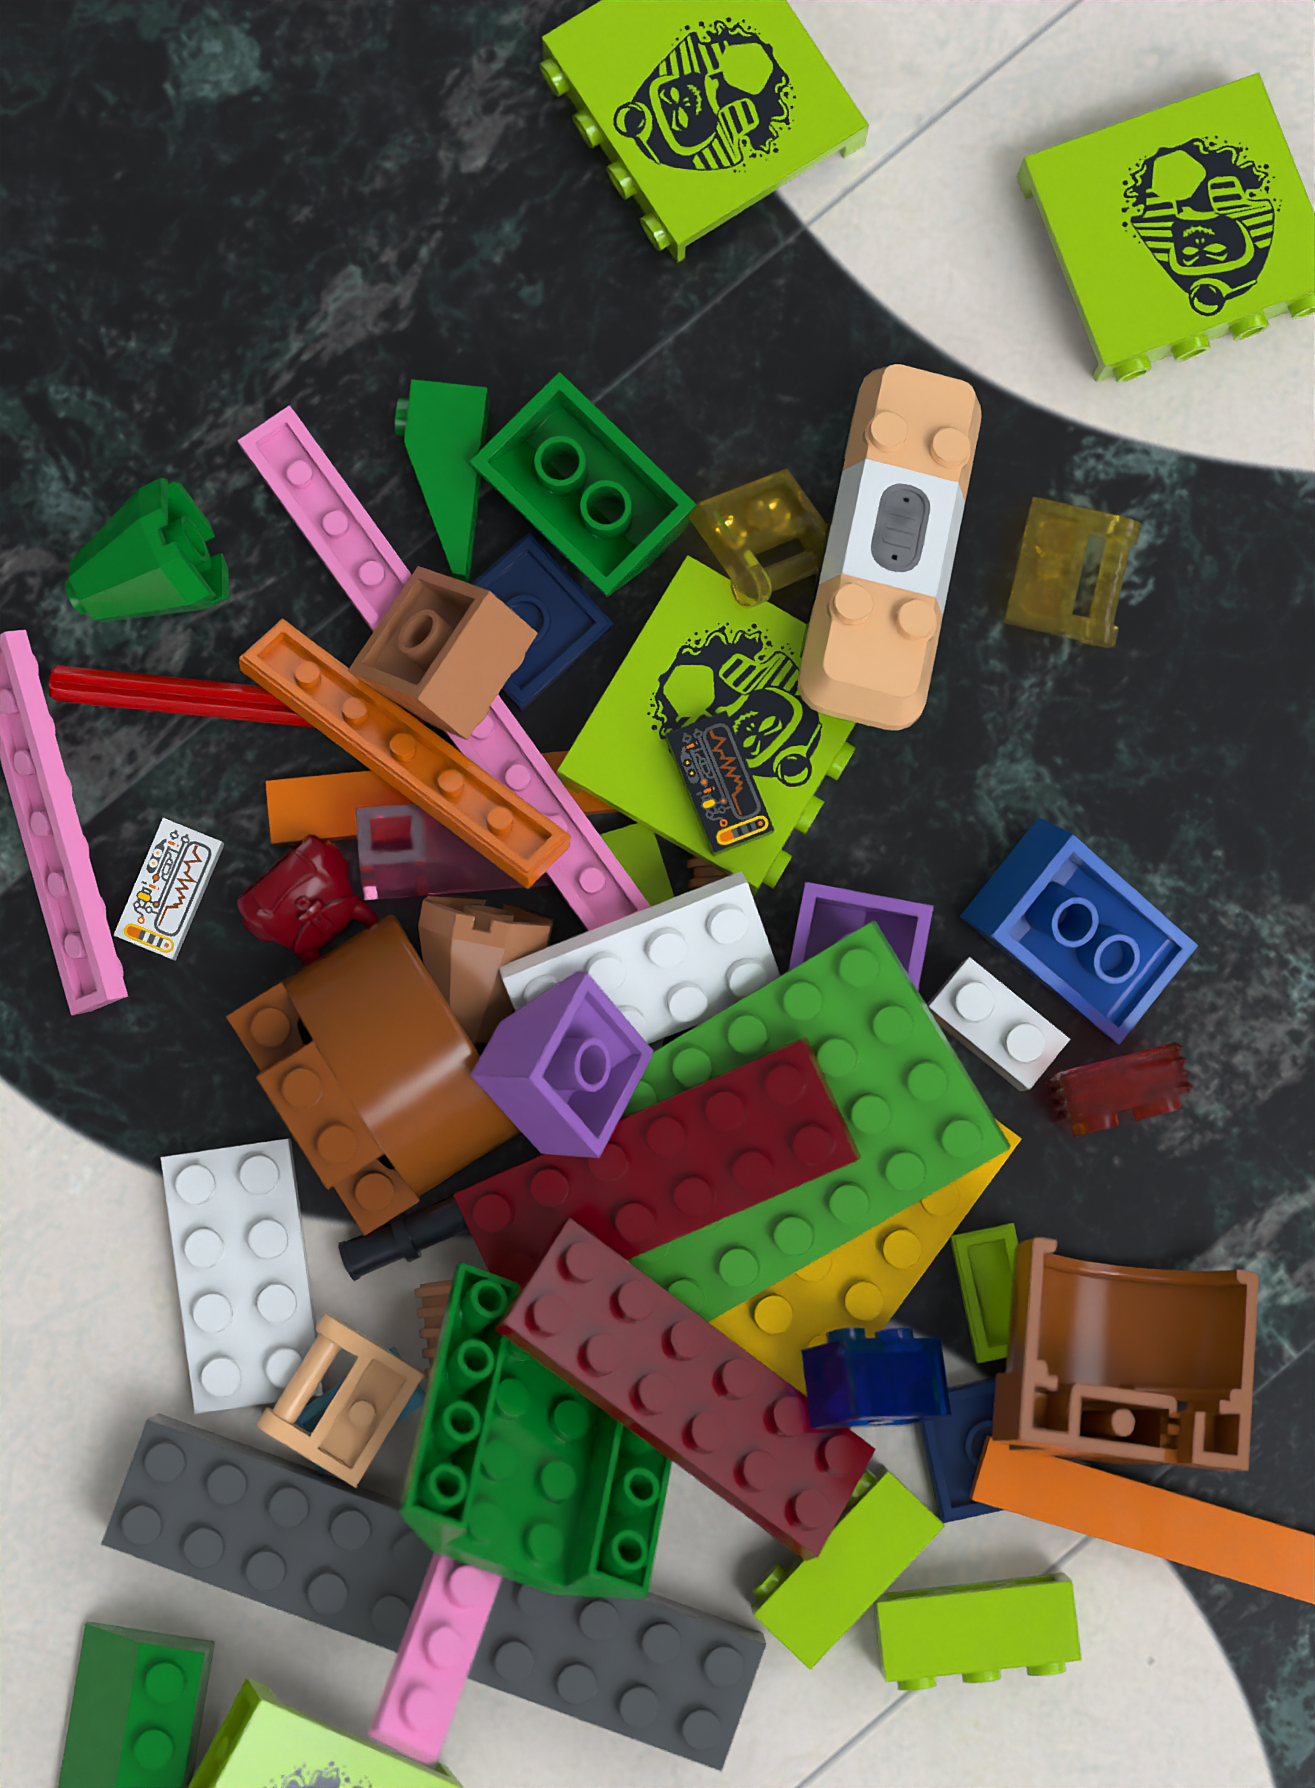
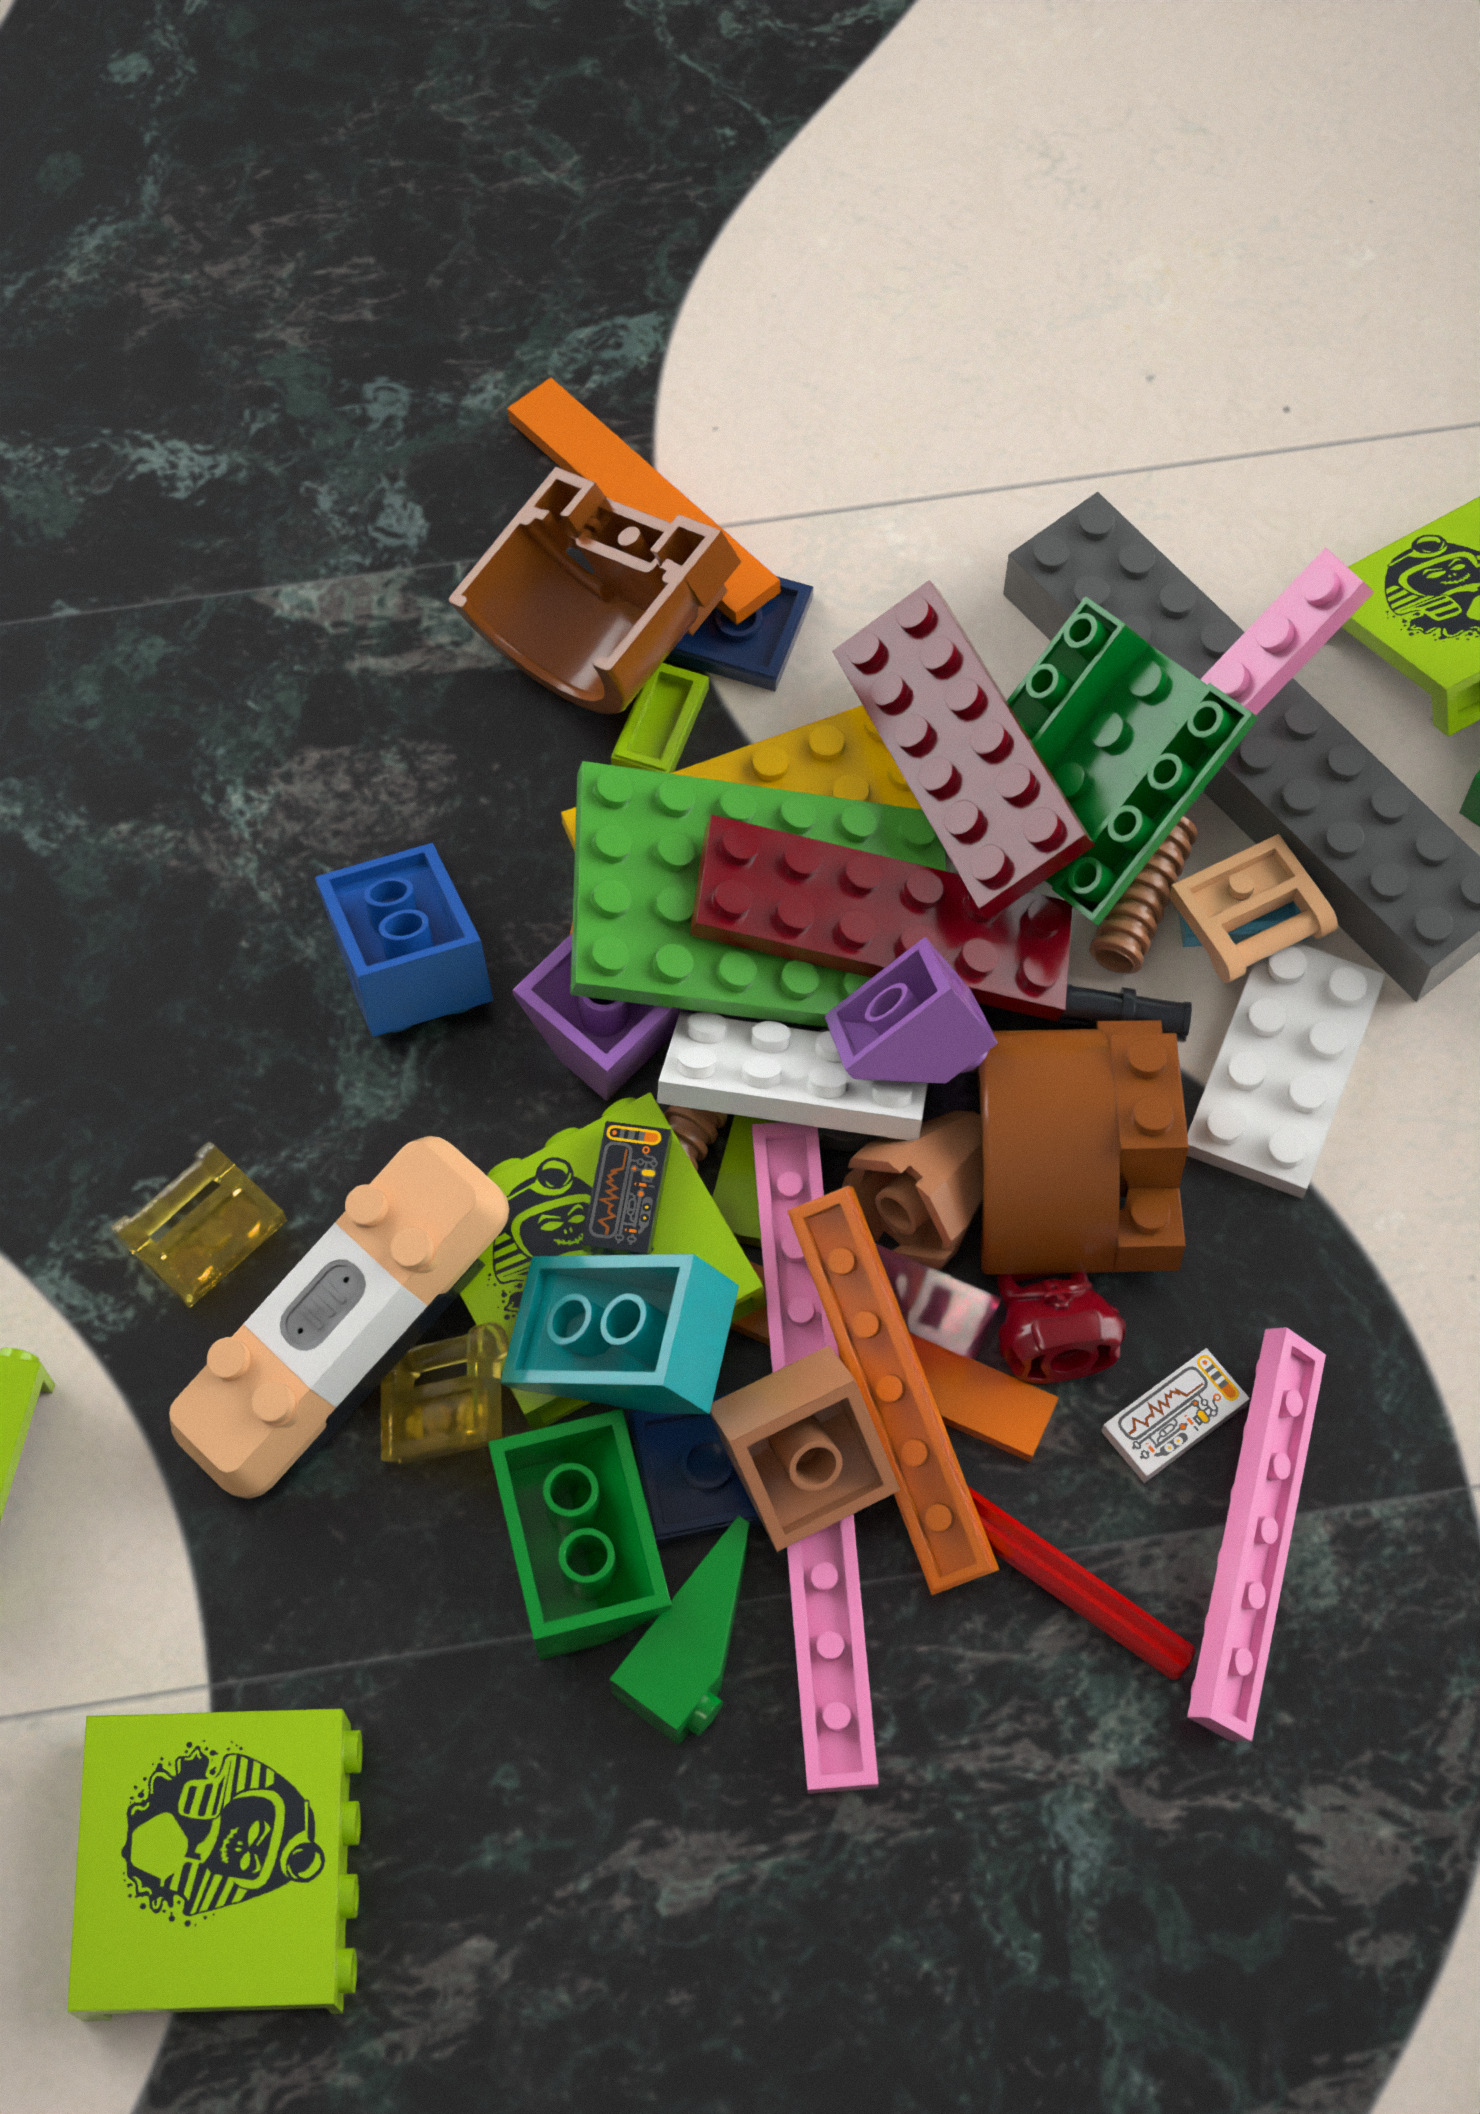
camera: 145 degrees left, 20 degrees down
(149, 560) = (1030, 1709): green cone -> none
(643, 651) = (622, 1331): none -> teal slope
(867, 1550) = (865, 586): lime brick -> none
(875, 1380) = (801, 684): clear blue brick -> none
(977, 1630) = (835, 502): lime brick -> none
(996, 1025) = (521, 895): white brick -> none
(1139, 1081) = (458, 789): clear red brick -> none

